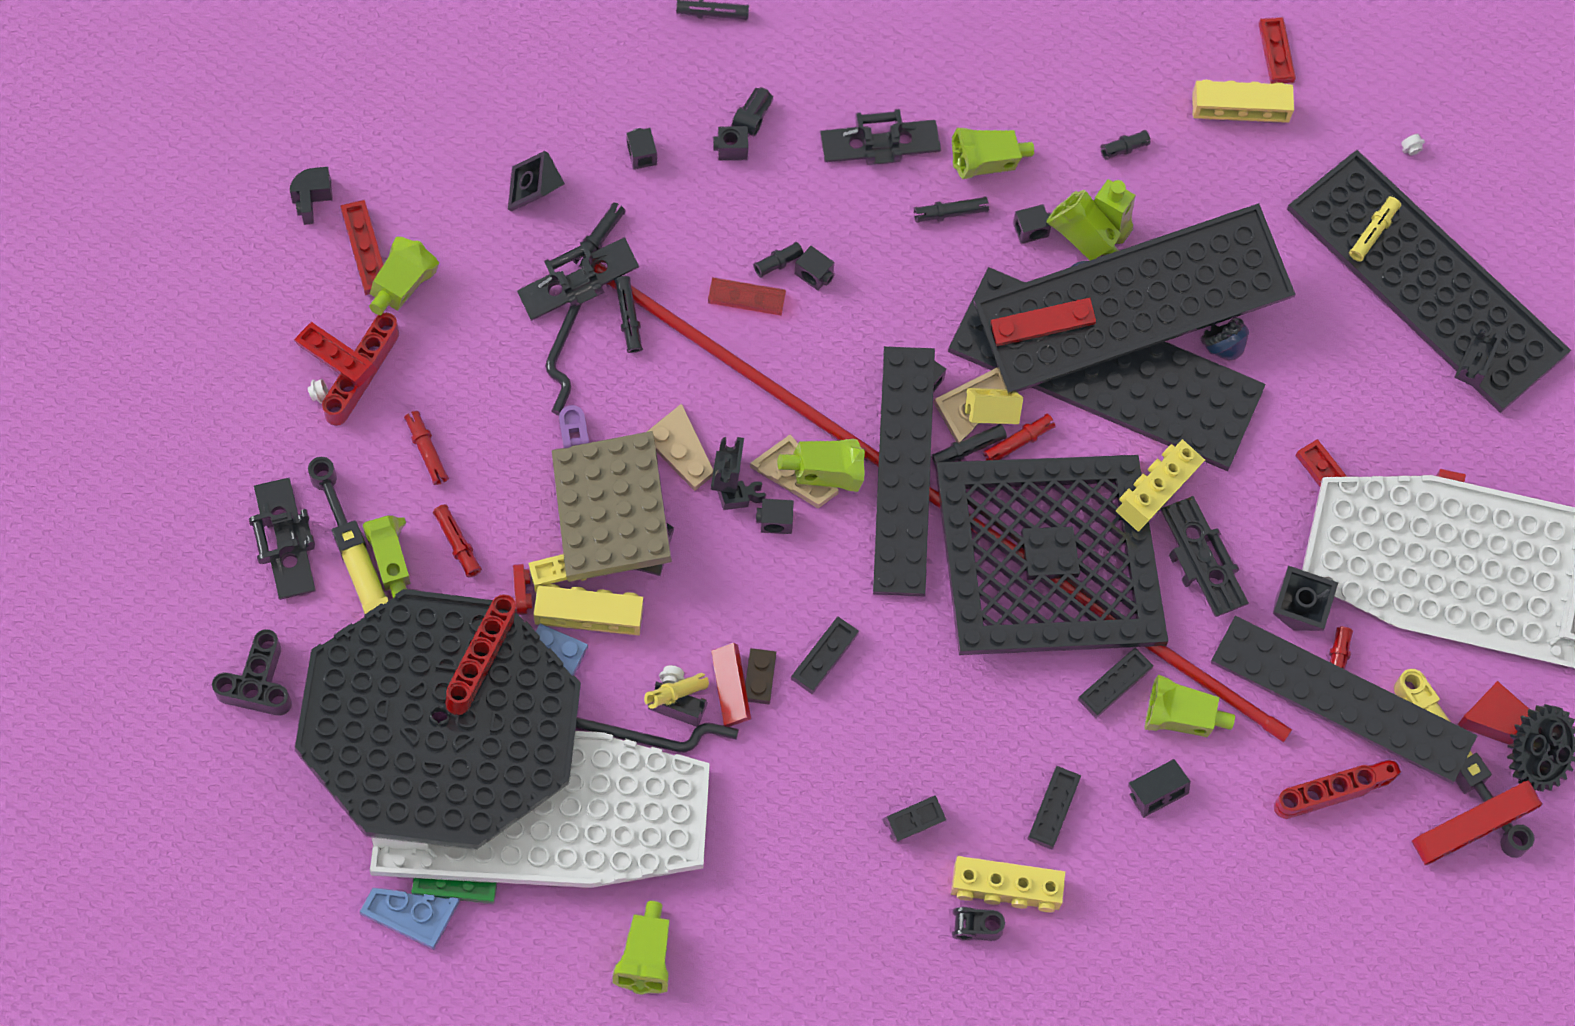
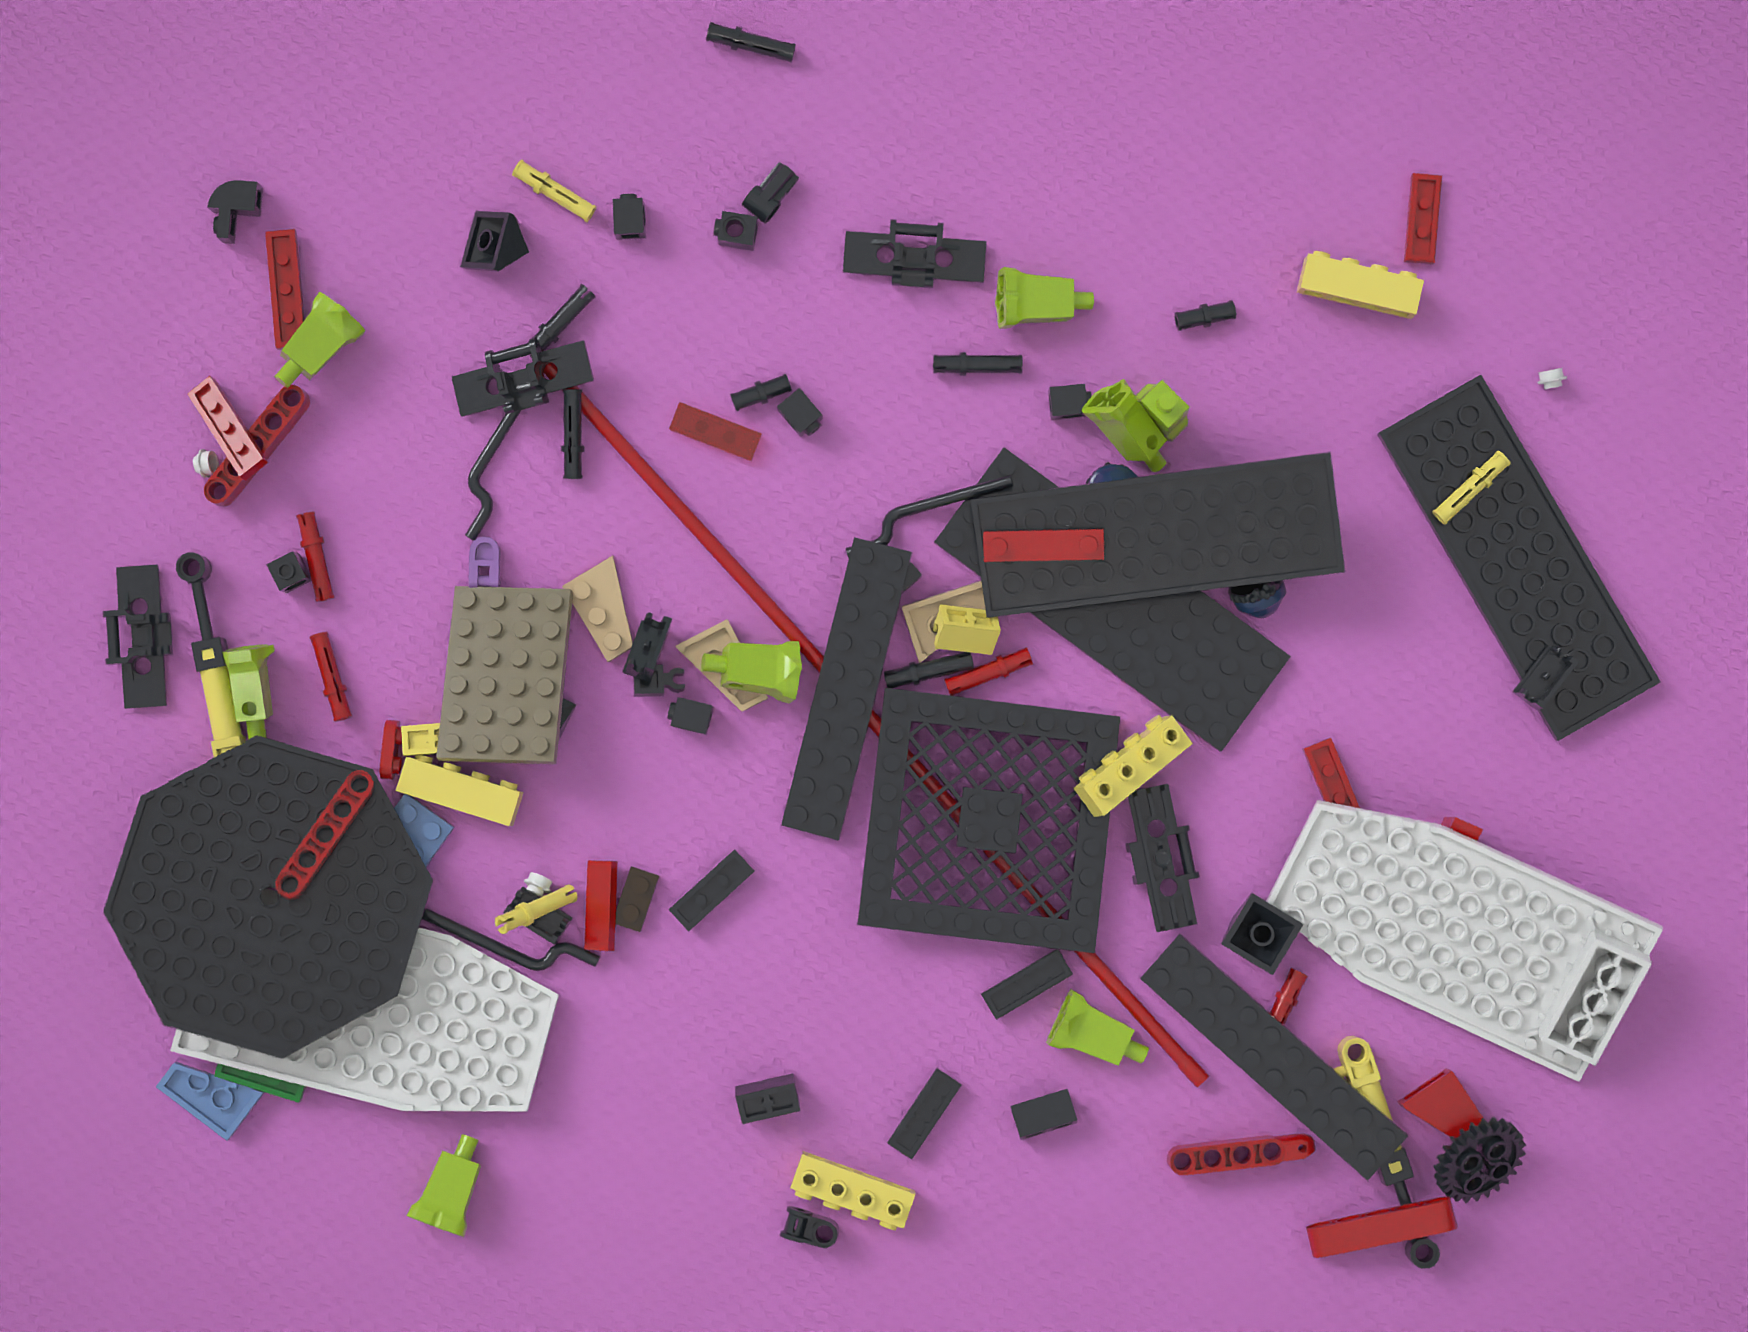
camera: 20 degrees right, 20 degrees up
(256, 681) = (79, 800): black beam -> none
(406, 461) = (289, 572): none -> black brick
(572, 138) = (544, 184): none -> light yellow pin
(944, 315) = (935, 502): none -> black piece

